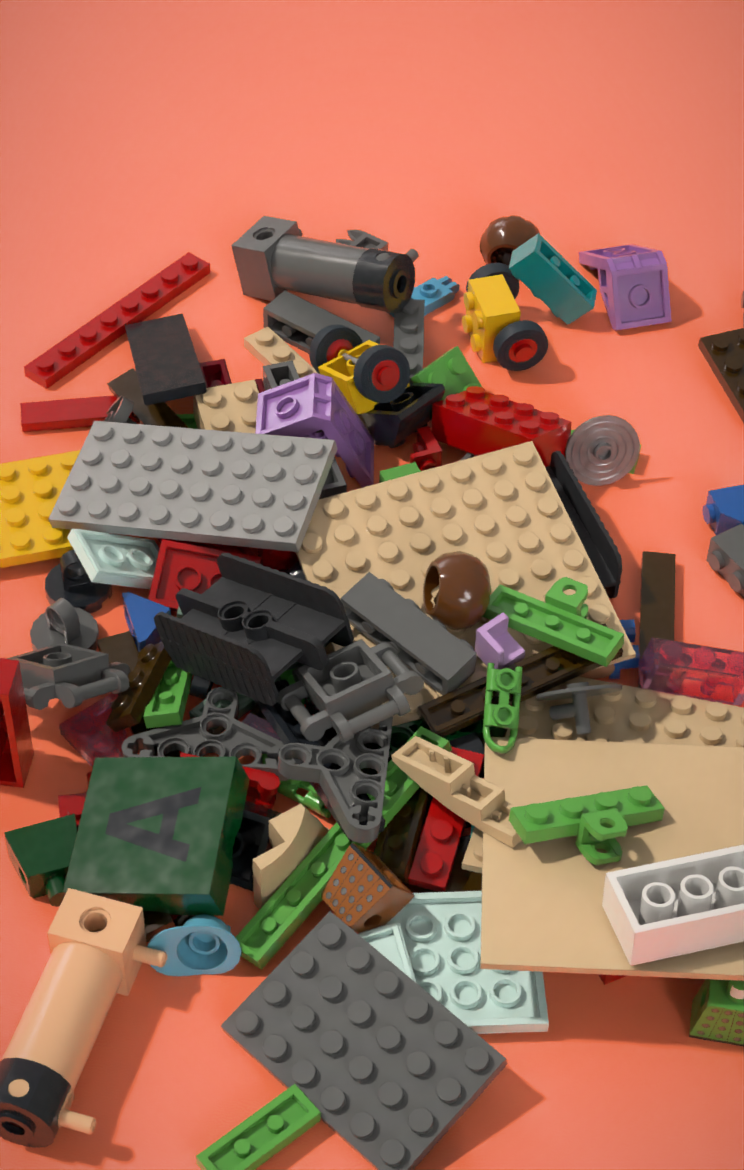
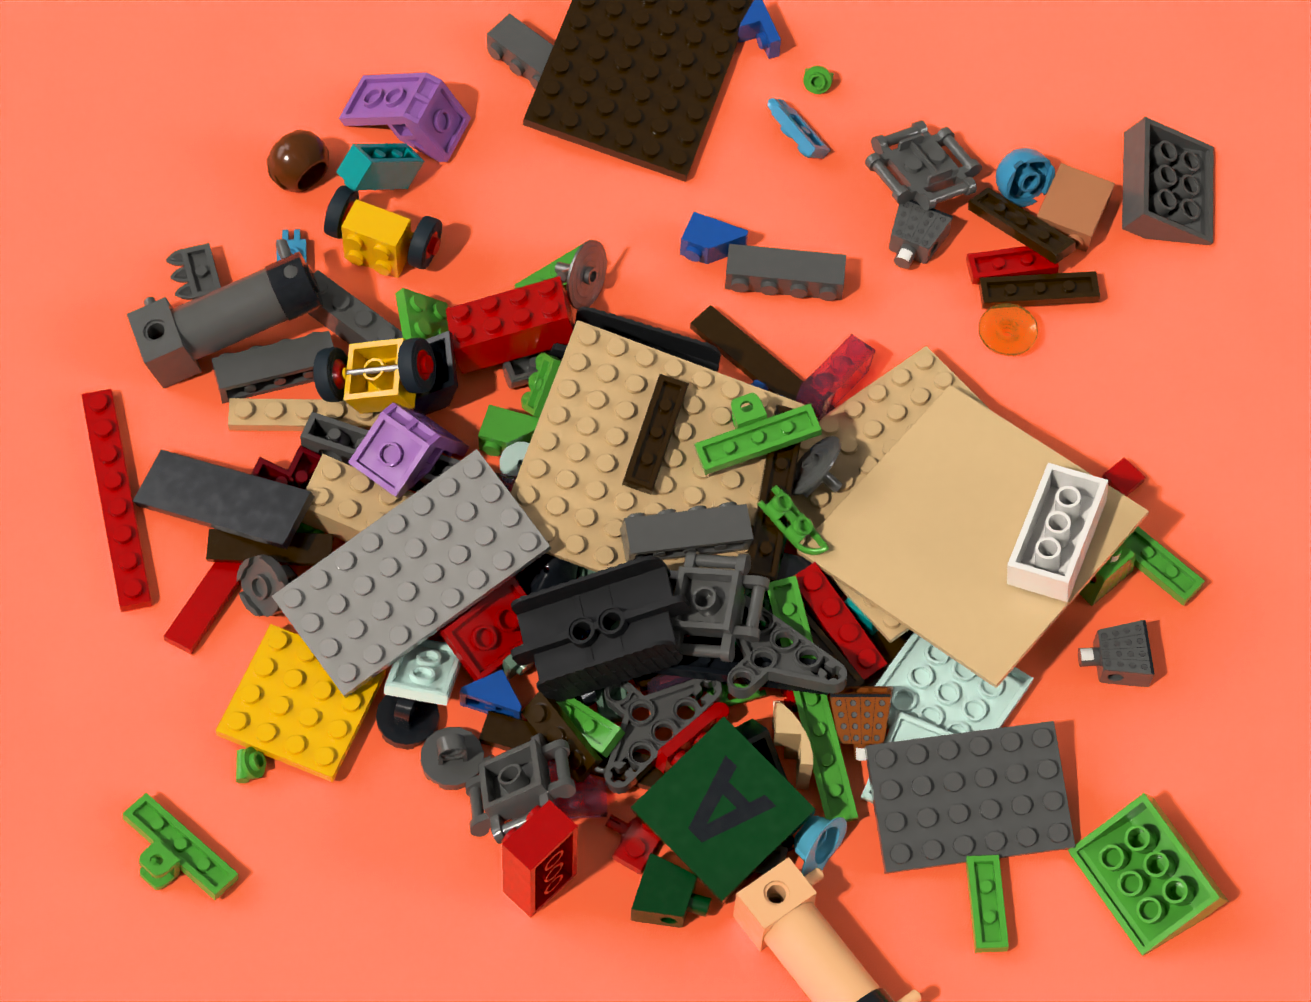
camera: 55 degrees left, 15 degrees up
(426, 450) = (478, 387): red bracket -> none
(457, 787) = (846, 598): tan slope -> none
(462, 590) = (686, 475): reddish brown piece -> none
(496, 645) = (742, 485): lavender panel -> none
(497, 549) = (655, 434): none -> dark brown tile
(591, 817) = (936, 539): bright green plate -> none
(653, 1089) = (1121, 655): none -> dark grey torso

